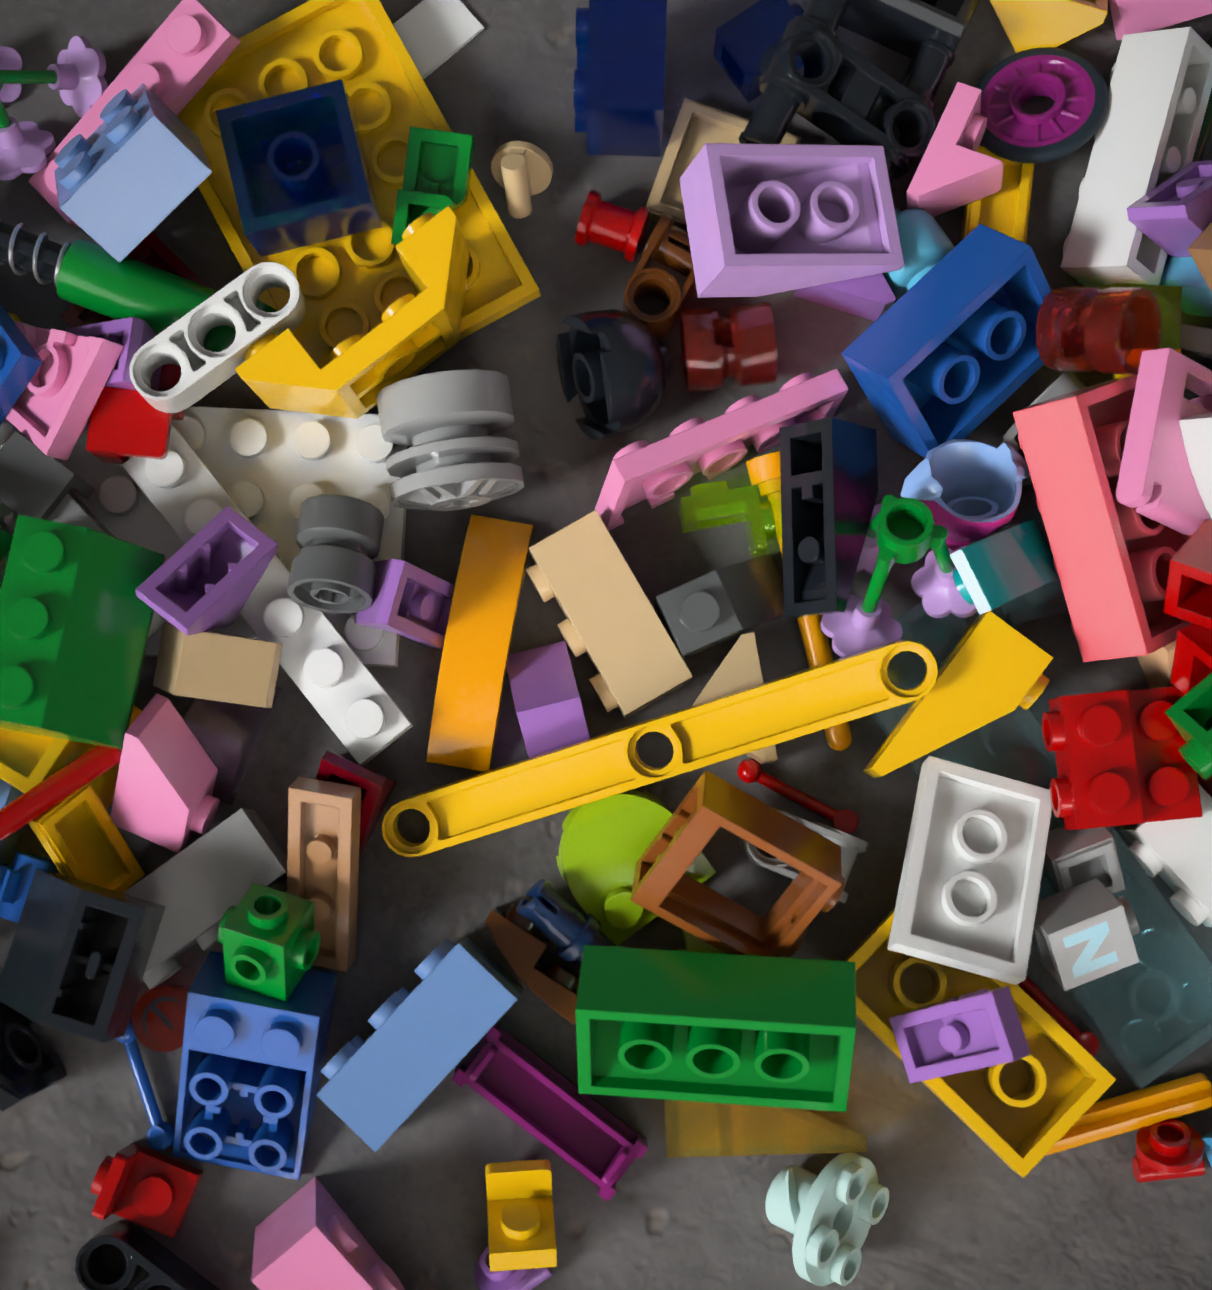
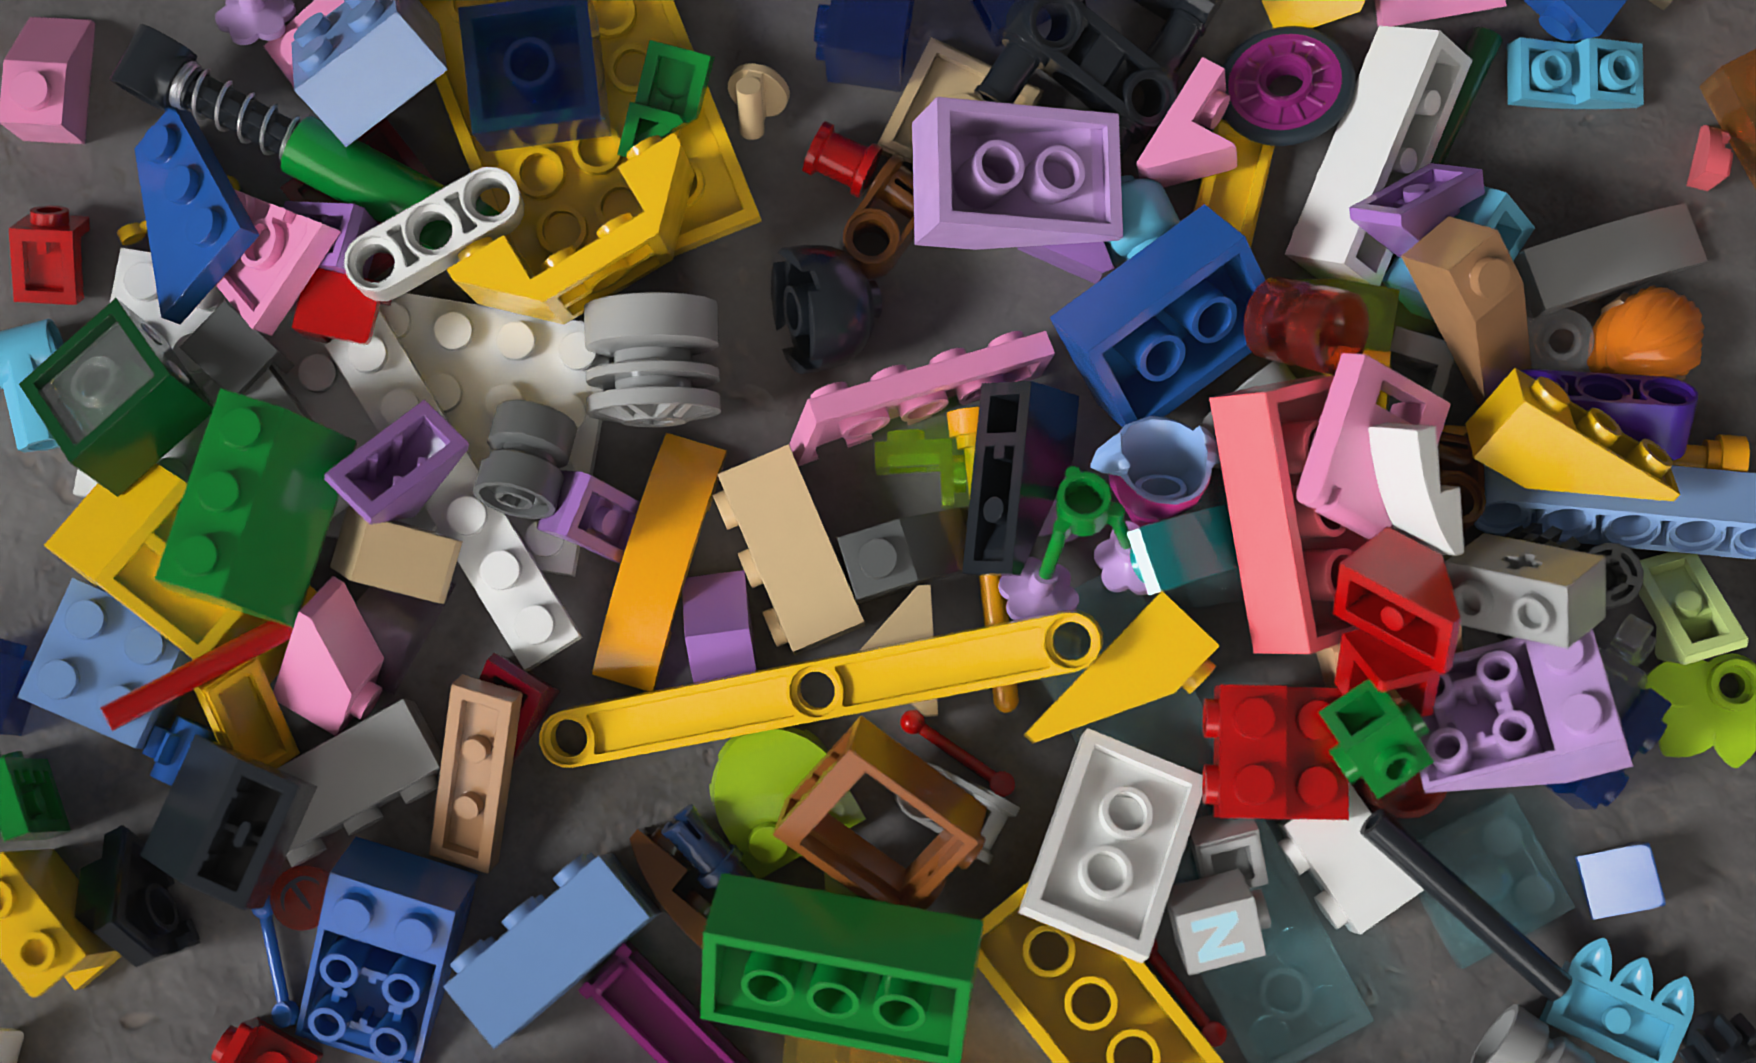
camera: 10 degrees right, 0 degrees up
(268, 941) = (414, 833): green brick -> none
(750, 343) = (964, 289): clear red wheel -> none
(960, 1035) = (1075, 1003): medium lavender slope -> none

